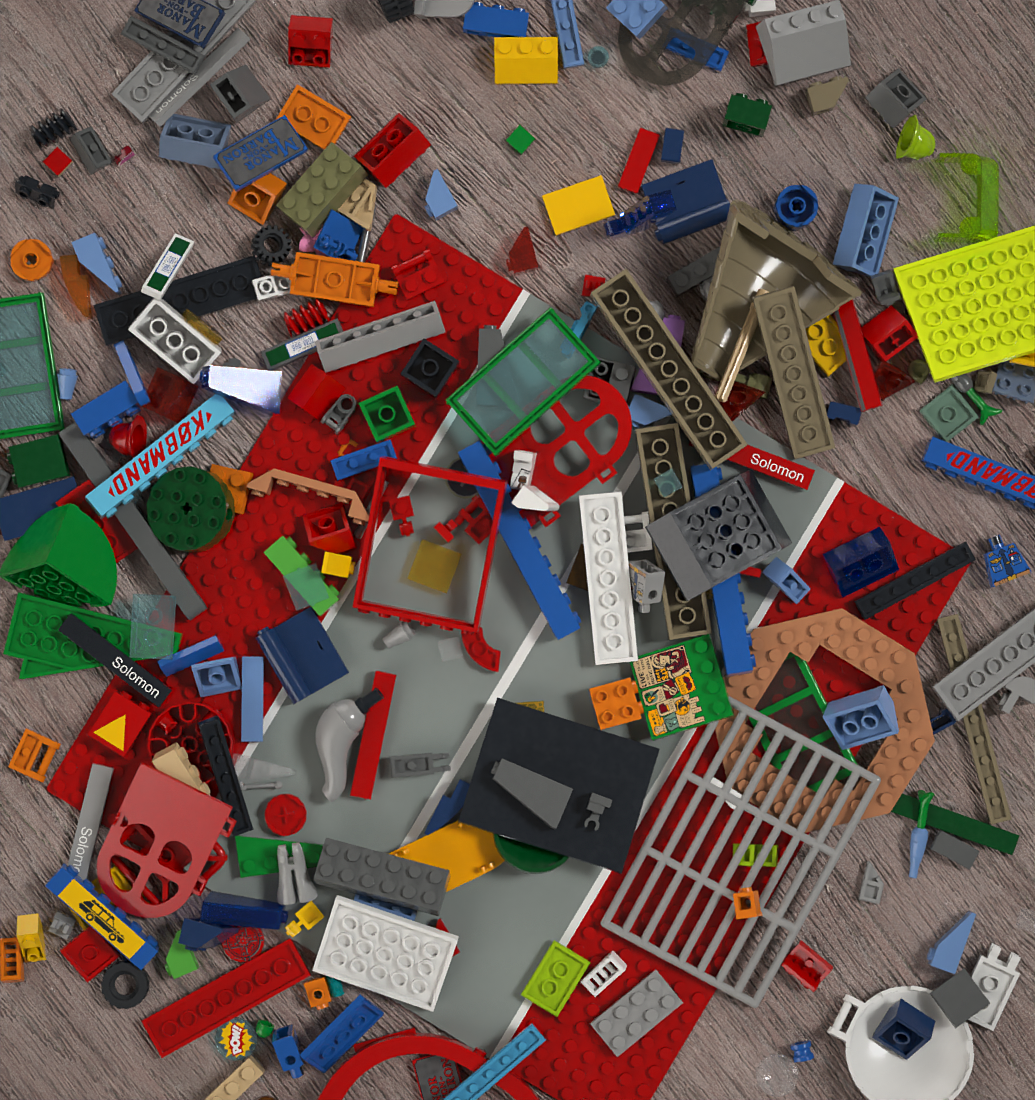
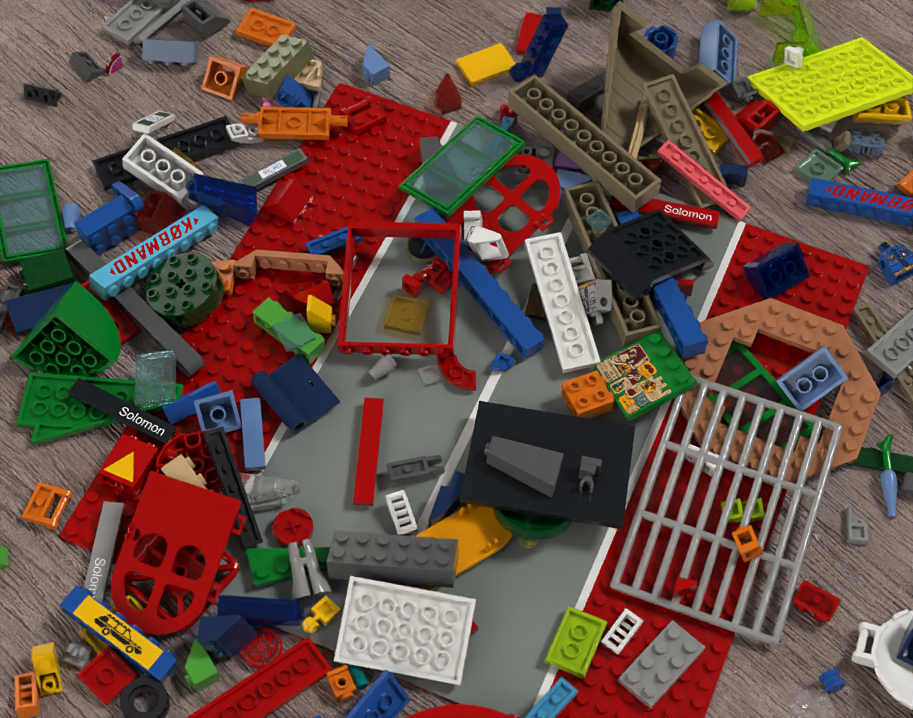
camera: 10 degrees left, 30 degrees down
(43, 261) = (38, 146): orange plate -> none
(52, 128) = (53, 50): black piece -> none
(58, 161) = (59, 74): red tile -> none
(77, 284) = (77, 148): clear orange slope -> none
(92, 255) = (90, 131): medium blue slope -> none
(129, 437) = (125, 242): red piece -> none
(260, 153) = (225, 43): tile -> none
(279, 237) = (237, 104): black tyre -> none
(305, 317) = (272, 150): red piece -> none
(334, 736) = (333, 448): light grey animal -> none
(339, 414) = (310, 209): dark grey piece -> none
(380, 336) = (336, 153): light grey brick -> none
(387, 414) = (350, 203): green brick -> none
(392, 150) = (335, 40): red slope -> none
(395, 797) = (398, 500): none -> white slope
(402, 509) = (373, 277): red plate -> none
(430, 368) = (382, 170): black brick -> none
(520, 139) = (433, 29): green tile -> none
(532, 642) = (502, 362): none -> blue tile
(672, 942) = (684, 586): none -> red slope
(697, 198) = (577, 54): dark blue door -> none
(786, 580) = (716, 289): medium blue slope -> none
(803, 427) = (703, 180): none -> coral tile
(914, 580) = (828, 280): black tile -> none
(957, 251) = (793, 56): none -> white tile

